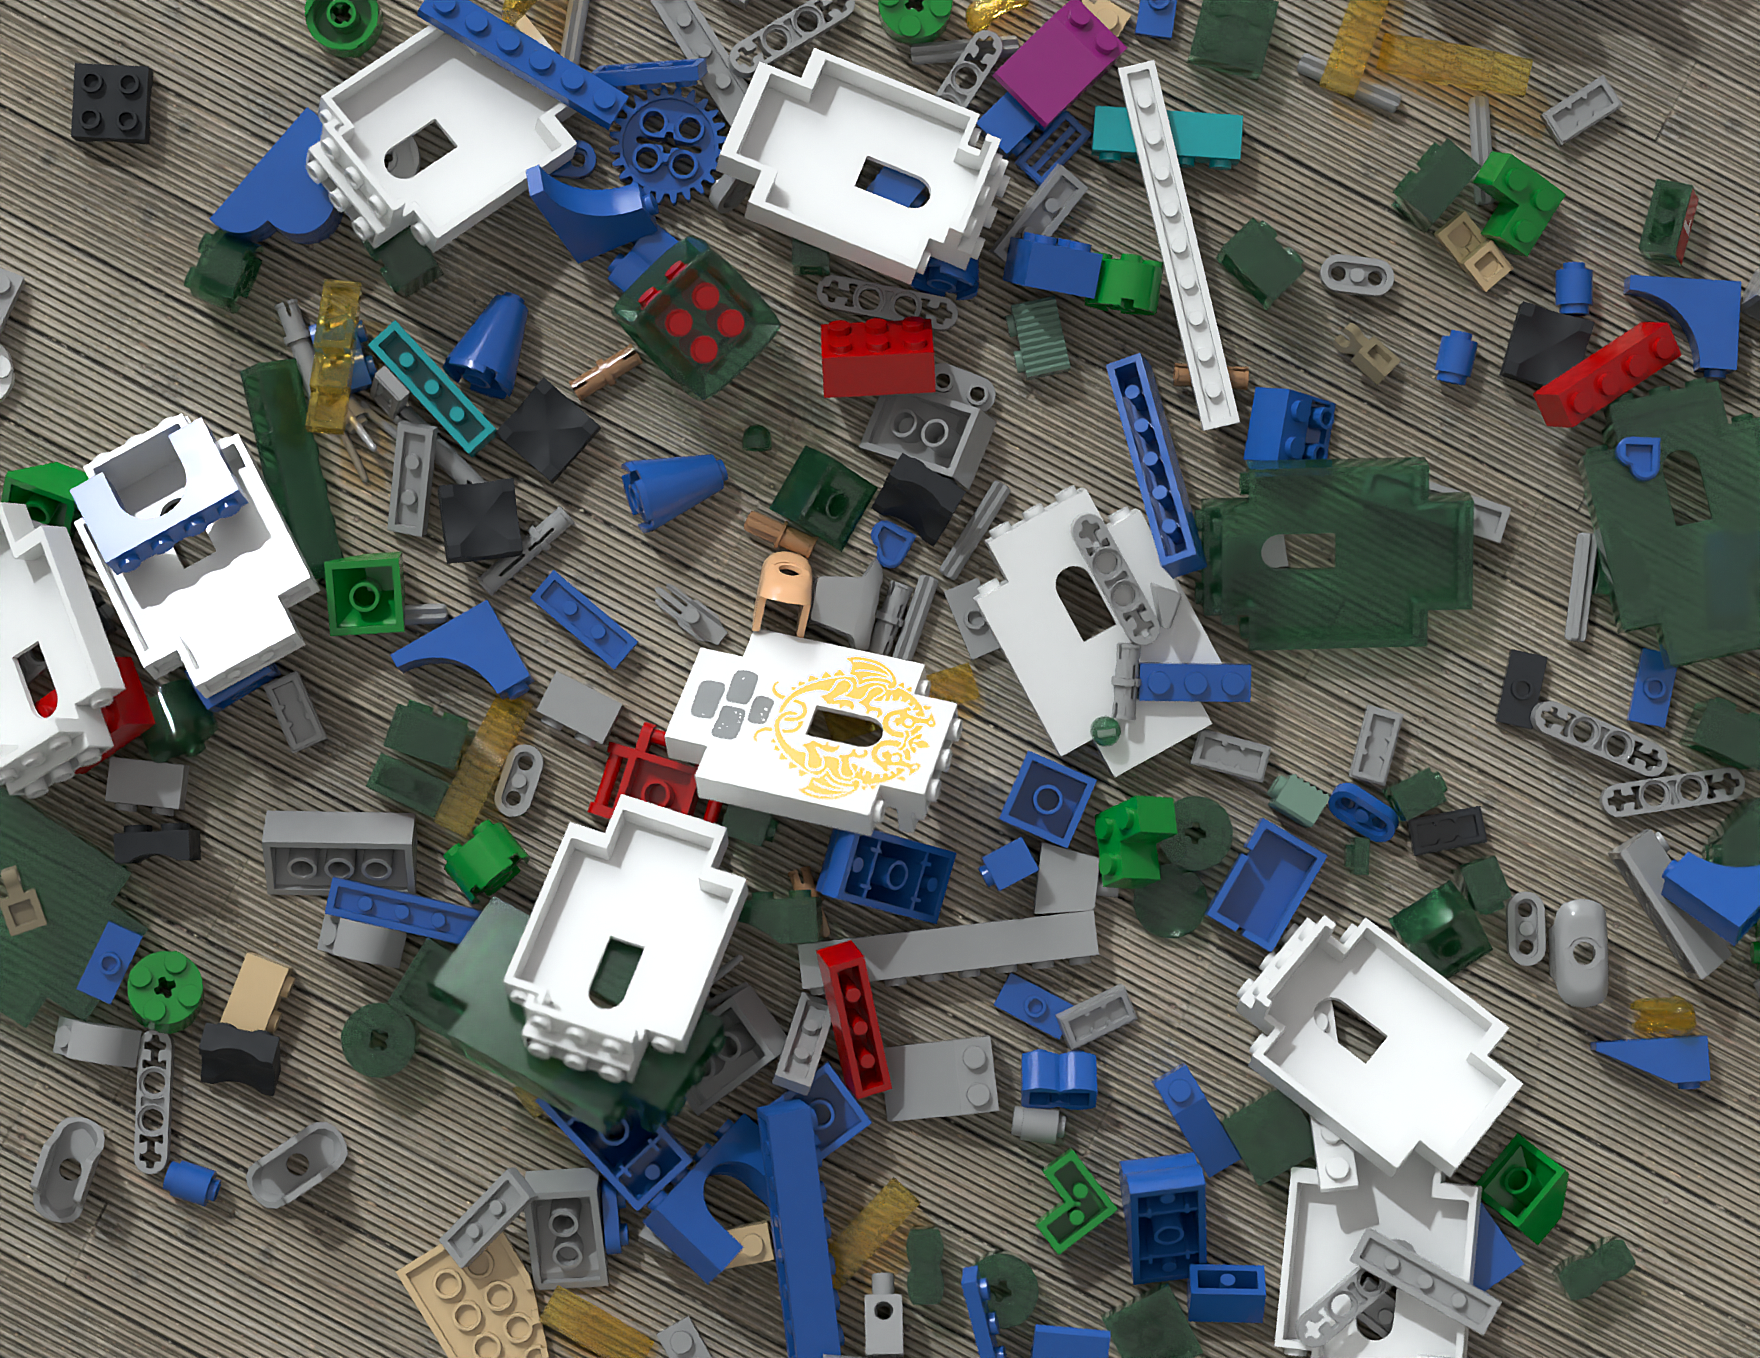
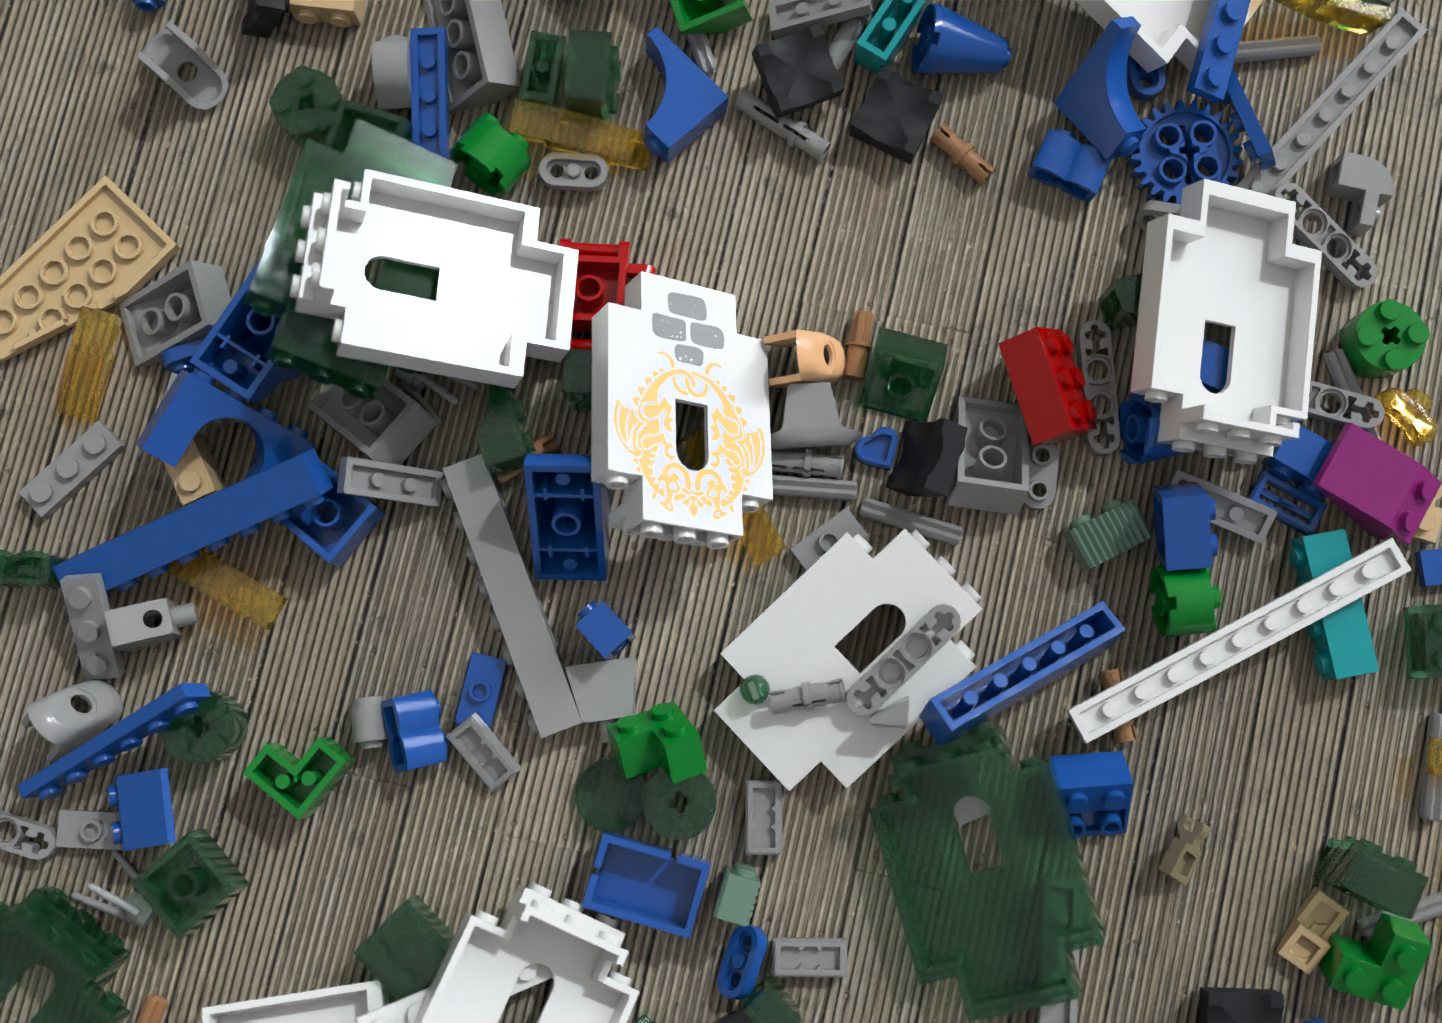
camera: 80 degrees right, 5 degrees down
(488, 1217) = (163, 235): light grey plate -> none
(580, 709) = (651, 206): light grey brick -> none
(584, 619) = (733, 191): blue plate -> none
(670, 486) = (876, 235): blue cone -> none
(695, 617) = (761, 289): light grey piece -> none
(696, 318) = (1041, 204): clear green piece -> none
(757, 439) = (939, 302): clear green hinge -> none
(854, 1019) = (422, 520): red brick -> none
(924, 1275) = (205, 653): clear green brick -> none
(941, 1079) = (391, 620): light grey slope -> none
(1047, 799) = (675, 651): blue brick -> none
(1164, 1216) = (306, 866): blue brick -> none
(1194, 682) = (824, 763): blue plate -> none
(1196, 1119) = (409, 871): blue slope -> none
(1226, 1293) = (245, 946): blue brick -> none
(1261, 262) = (1244, 724): clear green brick -> none
(1356, 275) = (1258, 820): light grey plate -> none
(1357, 855) = (698, 967): clear green plate -> none
(1456, 358) = (1205, 940): blue brick -> none

